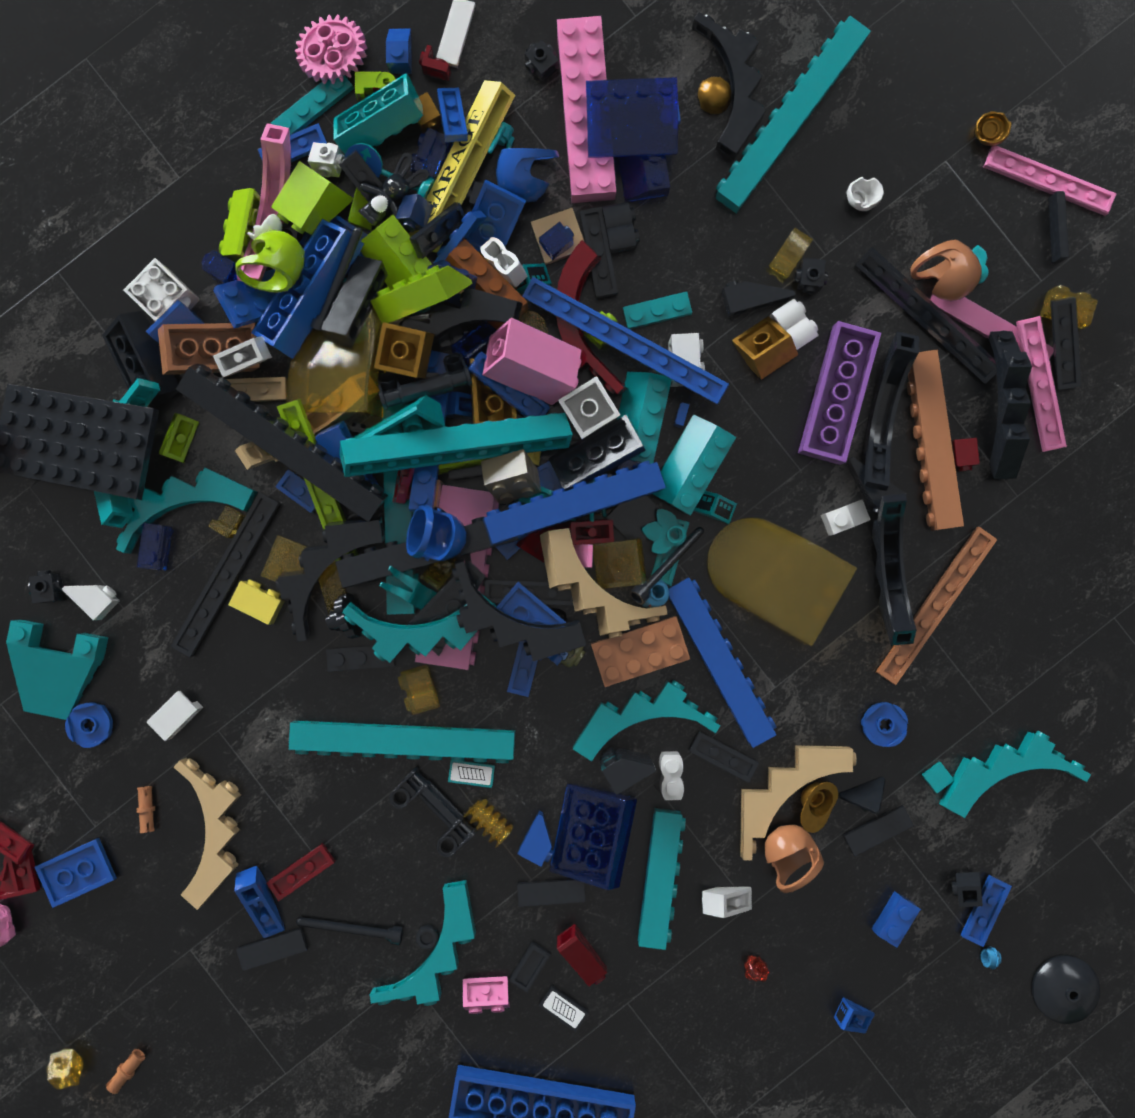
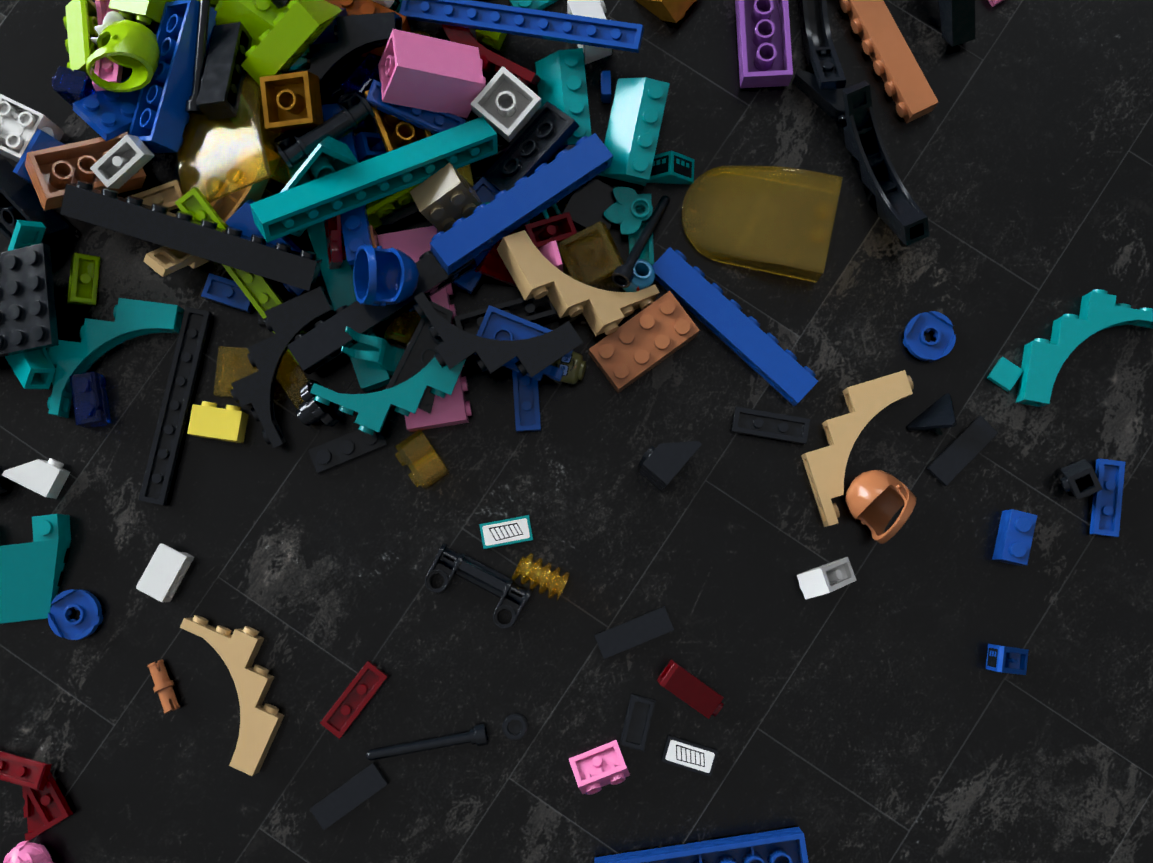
camera: 15 degrees left, 5 degrees down
(75, 872) = (106, 781): blue plate -> none
(227, 522) = (161, 350): clear yellow panel -> none
(258, 901) = (318, 747): blue slope -> none
(402, 740) = (419, 519): teal brick -> none
(424, 981) = (528, 776): teal arch -> none
(537, 842) = (601, 581): blue slope -> none
(593, 836) = (659, 555): clear blue slope -> none
(608, 722) = (692, 388): teal arch -> none
(660, 877) = (746, 577): teal brick -> none
(670, 781) = (723, 468): white brick -> none
(756, 969) = (883, 642): clear red piece -> none
(817, 805) = (888, 442): pearl gold piece -> none
(845, 517) = (811, 136): white slope -> none
(938, 603) = (940, 194): nougat plate -> none
(965, 453) = (914, 30): dark red brick -> none
(990, 957) = (1130, 547): dark azure plate -> none

